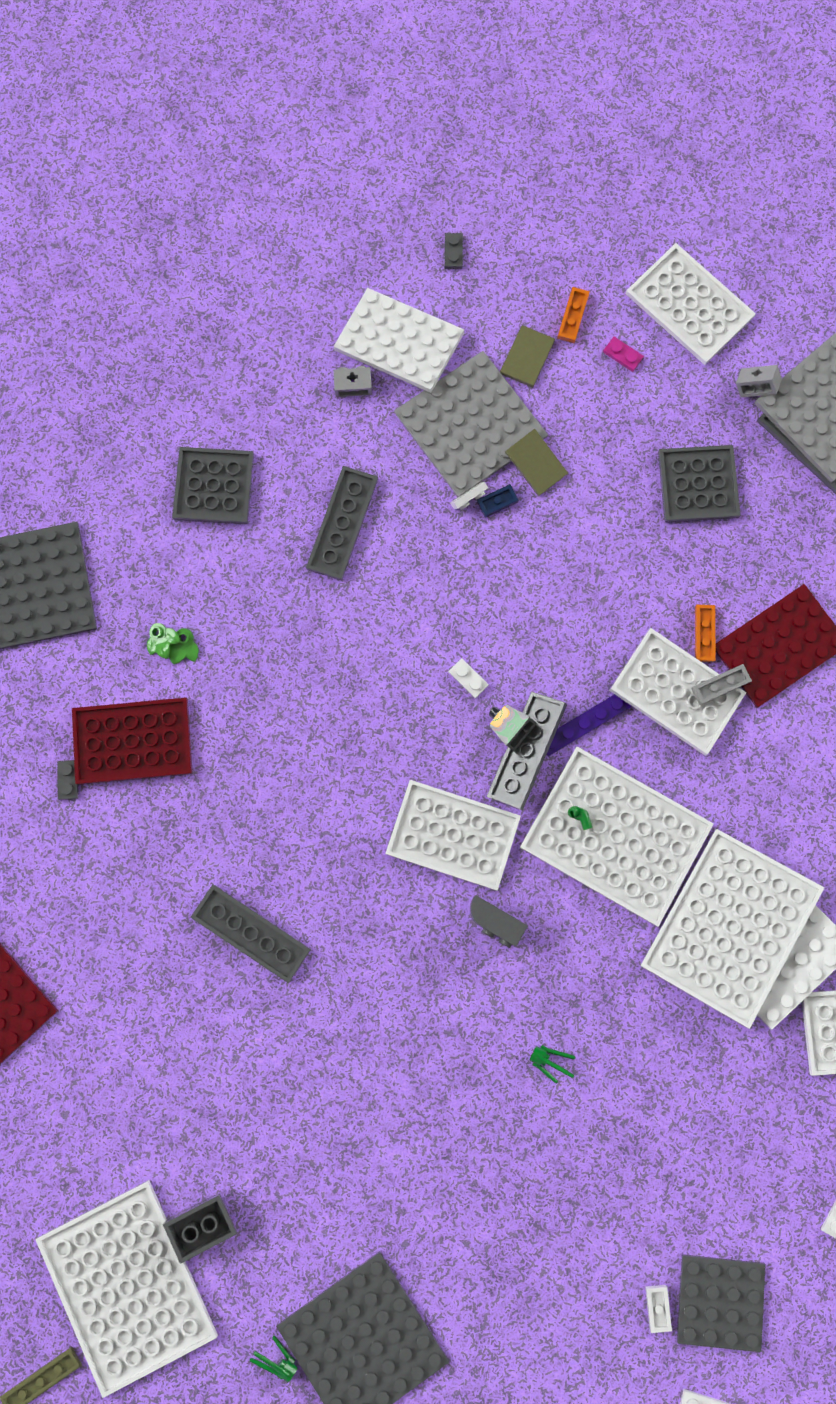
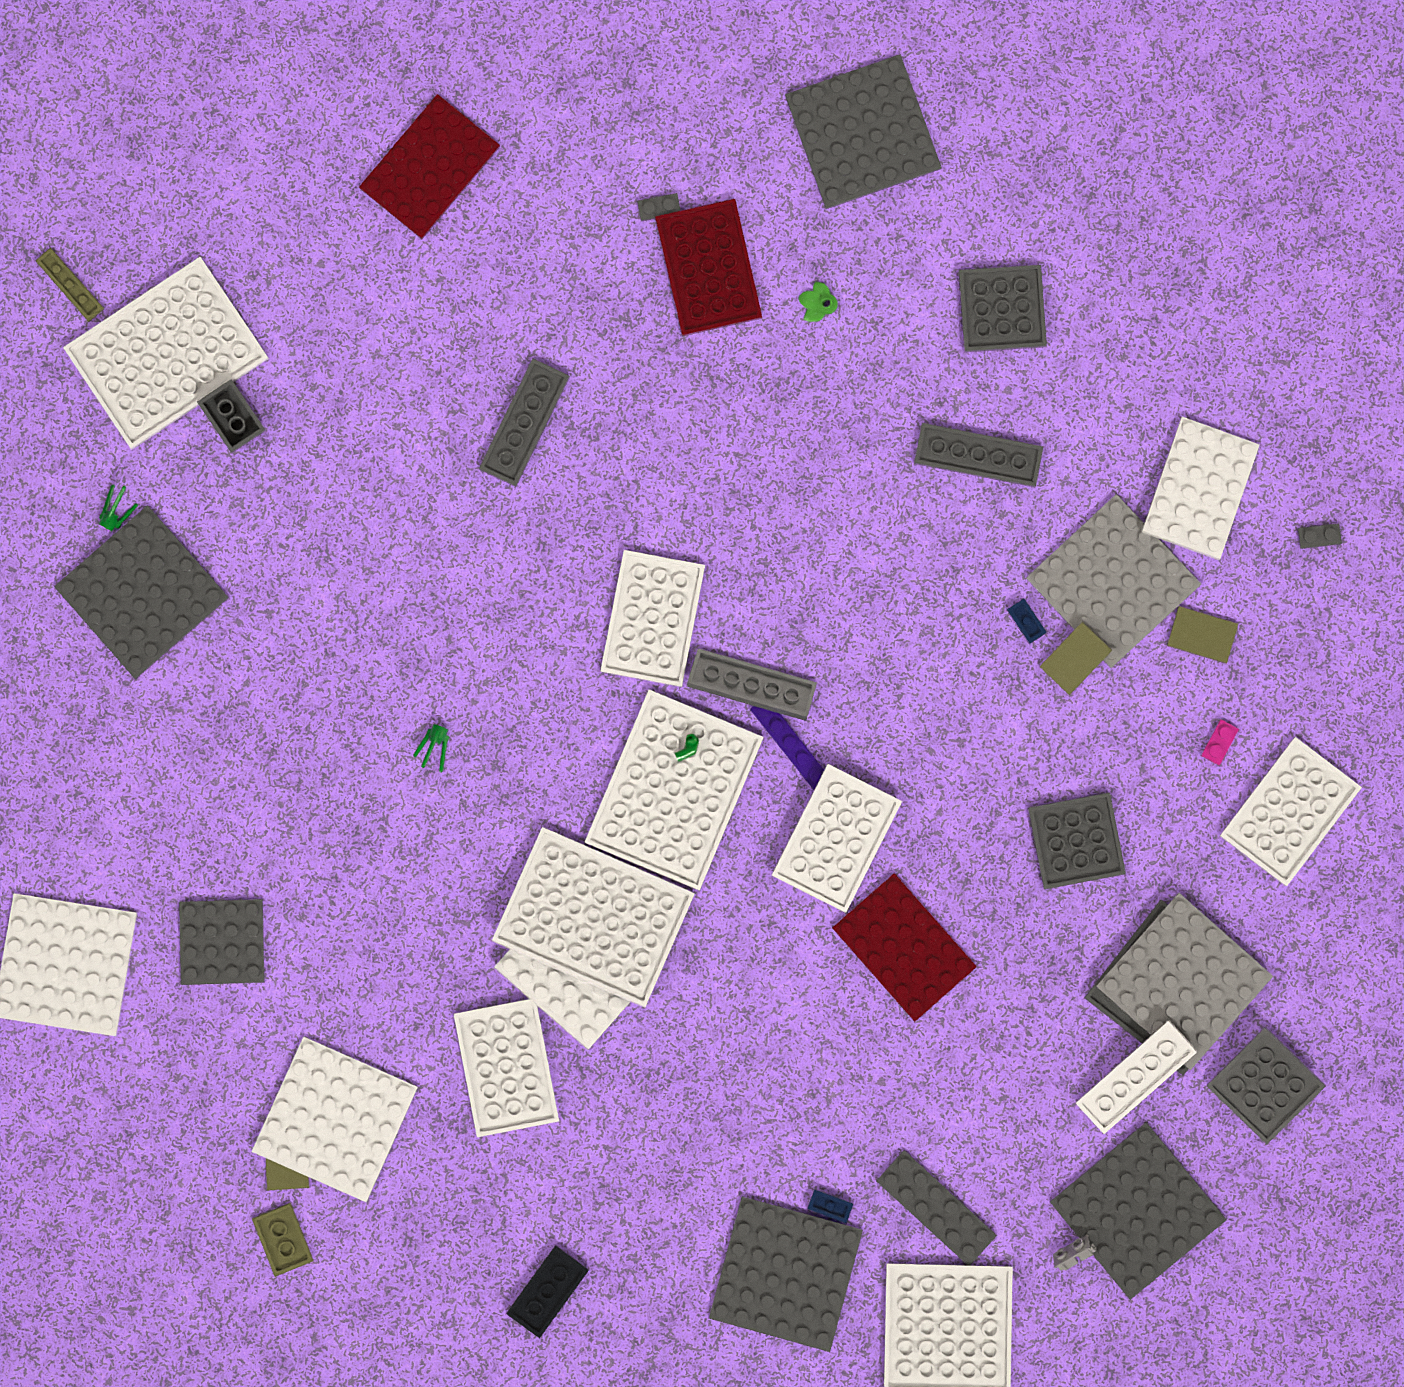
camera: 85 degrees right, 5 degrees up
(161, 643) = (820, 282): bright green plate -> none
(360, 386) = (1140, 455): light grey brick -> none
(468, 678) = (823, 614): white plate -> none
(475, 492) = (1032, 595): white plate -> none
(496, 922) = (567, 672): dark grey brick -> none
(510, 725) = (775, 663): torso -> none
(573, 315) = (1258, 680): orange plate -> none
(658, 1308) = (209, 879): white plate -> none
(705, 633) = (906, 863): orange plate -> none
(721, 684) = (848, 882): light grey plate -> none
(759, 381) = (1201, 893): light grey brick -> none

